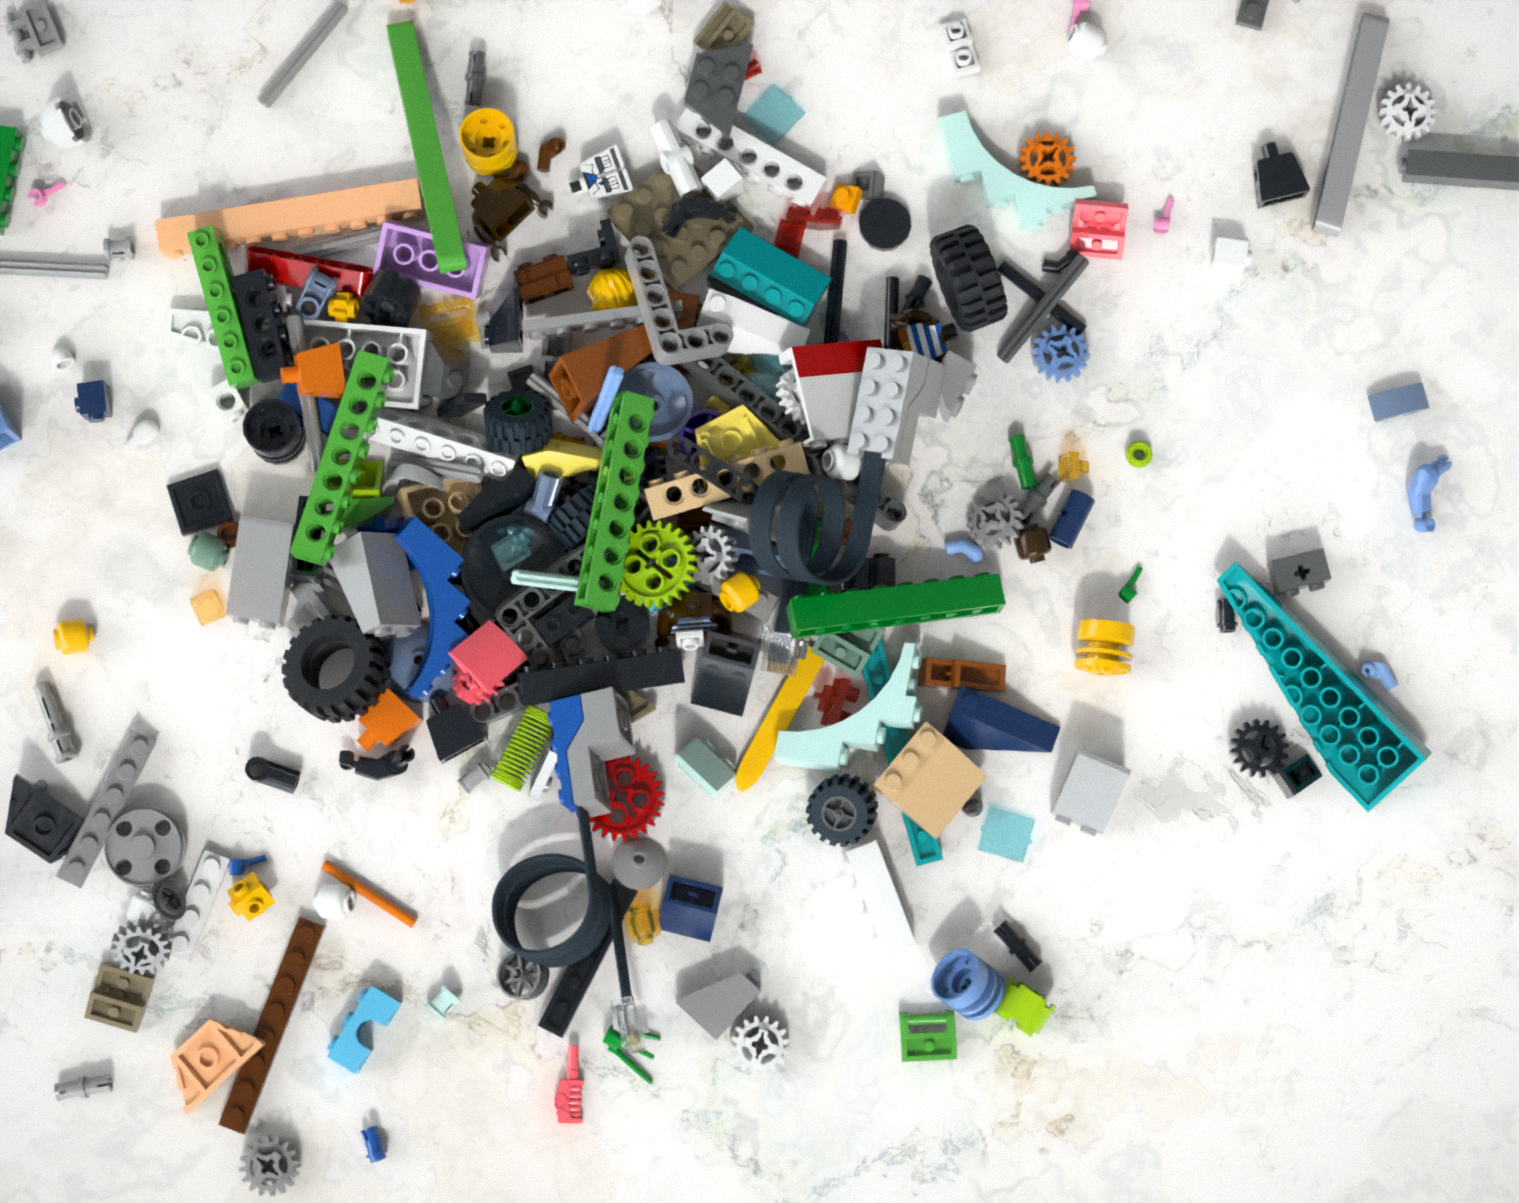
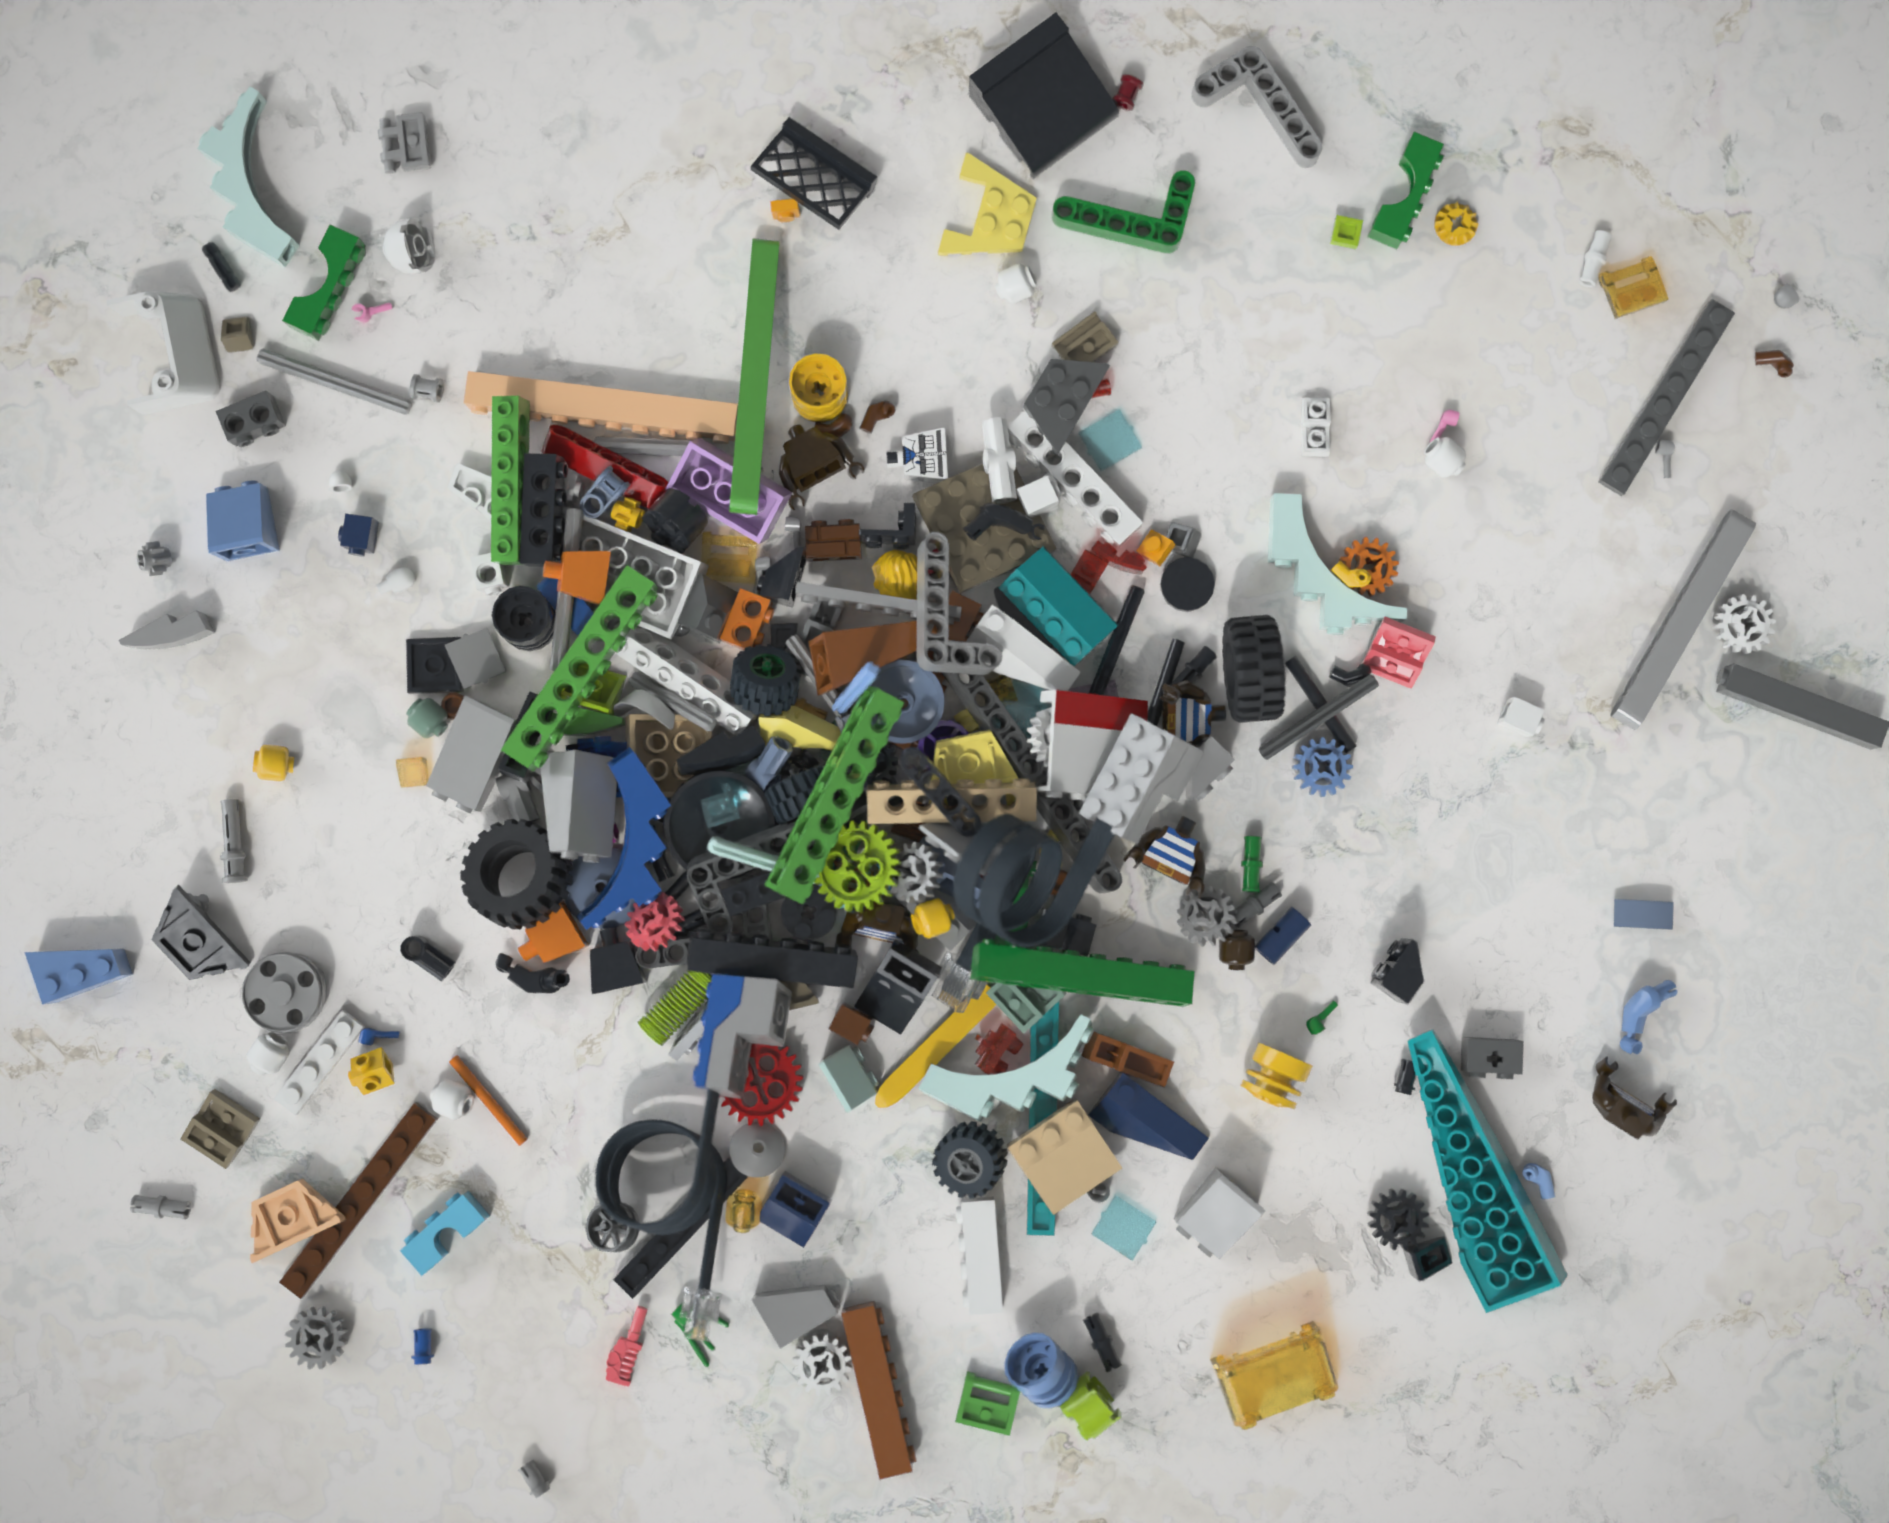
camera: 20 degrees right, 5 degrees up
(105, 809) = (256, 943): light grey plate -> none
(129, 950) = (251, 1090): light grey gear -> none
(176, 905) = (297, 1057): dark grey gear -> none
(237, 484) = (475, 658): none -> light grey piece
(302, 54) = (662, 244): light grey axle -> none
(443, 1003) = (528, 1230): light aqua bush -> none
(462, 405) = (715, 646): black tile -> none
(475, 78) = (825, 317): dark grey pin -> none
(475, 776) = (624, 1016): light grey pin -> none
(477, 375) = (740, 619): none -> orange brick
(488, 655) = (667, 907): coral slope -> none
(501, 275) = (794, 525): none -> light grey hand
(690, 639) = (870, 947): white slope -> none
(693, 716) = (852, 1024): none -> reddish brown brick
(819, 1053) = (877, 1389): none -> dark orange brick
(840, 464) = (1068, 820): white head -> none
(946, 473) = (1172, 854): none -> torso
(967, 547) = (1171, 933): light blue arm -> none
(1033, 172) = (1351, 577): none -> yellow arm
(1071, 467) = (1297, 883): clear yellow tile -> none
(1138, 446) = (1377, 889): lime plate -> none
(1162, 225) = (1463, 665): bright pink hand -> none
(1189, 927) = (1276, 1377): none -> clear yellow windscreen
(1191, 520) = (1401, 972): none -> black slope
(1278, 177) = (1593, 652): black torso -> none
(1436, 583) = (1625, 1109): none -> dark brown torso

